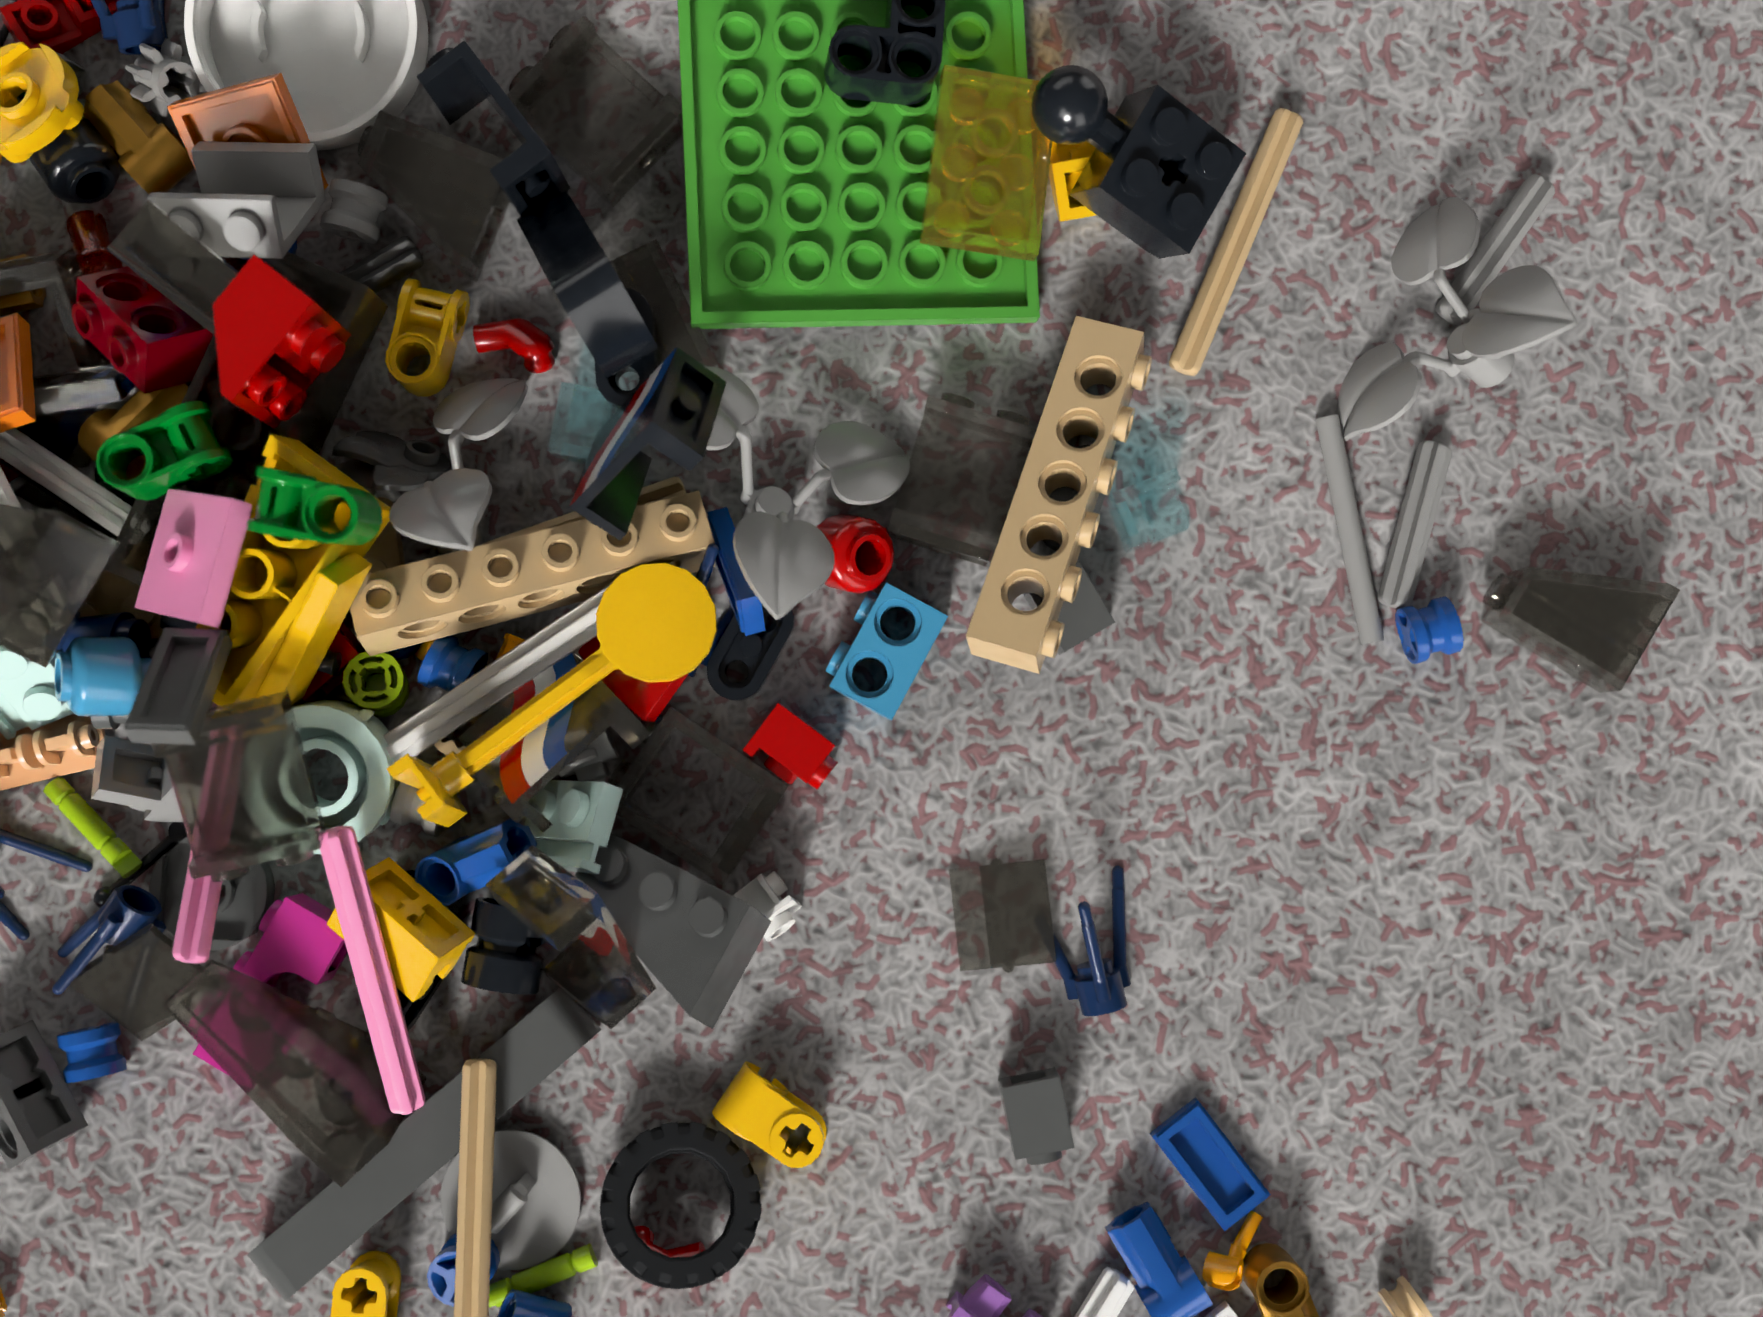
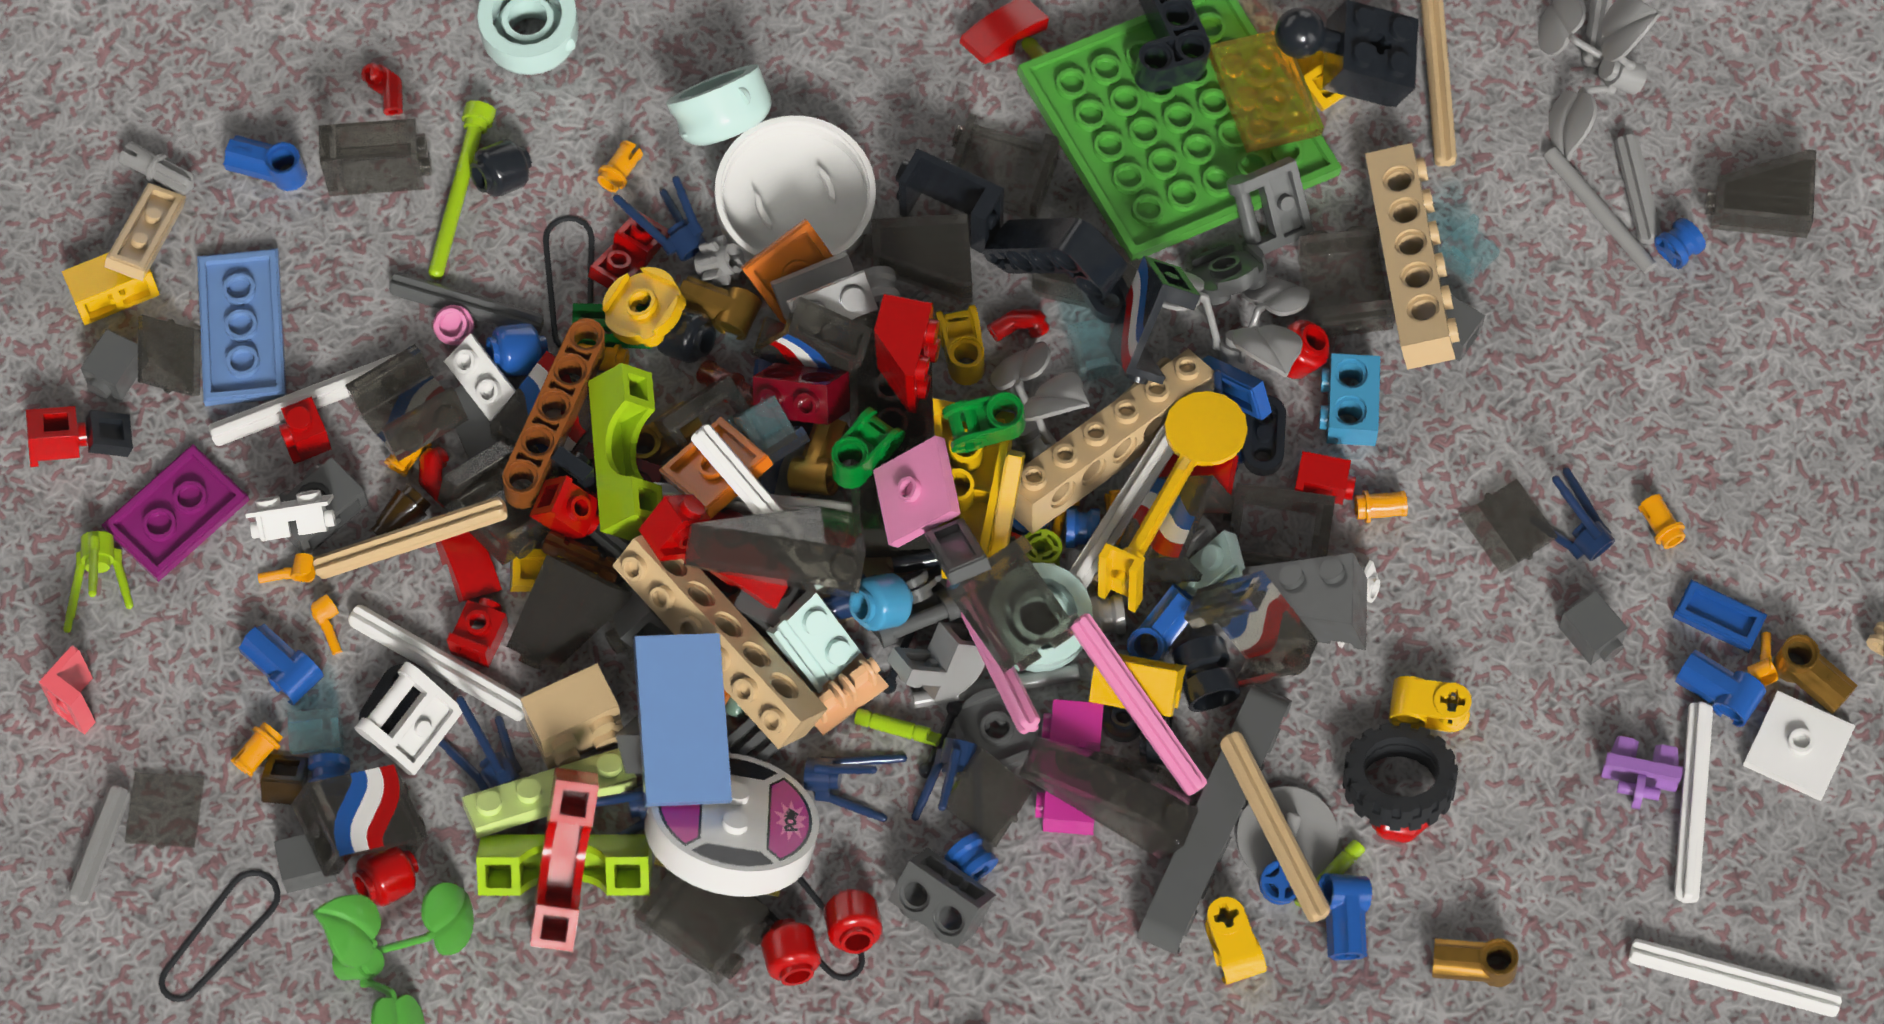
camera: 20 degrees left, 20 degrees down
(57, 354) = (763, 423): none -> clear light blue panel
(829, 418) = (1230, 271): none -> dark grey plate
(851, 811) = (1380, 505): none -> light orange pin
(932, 334) = (1282, 204): none -> dark grey plate
(1202, 1004) = (1662, 522): none -> light orange pin

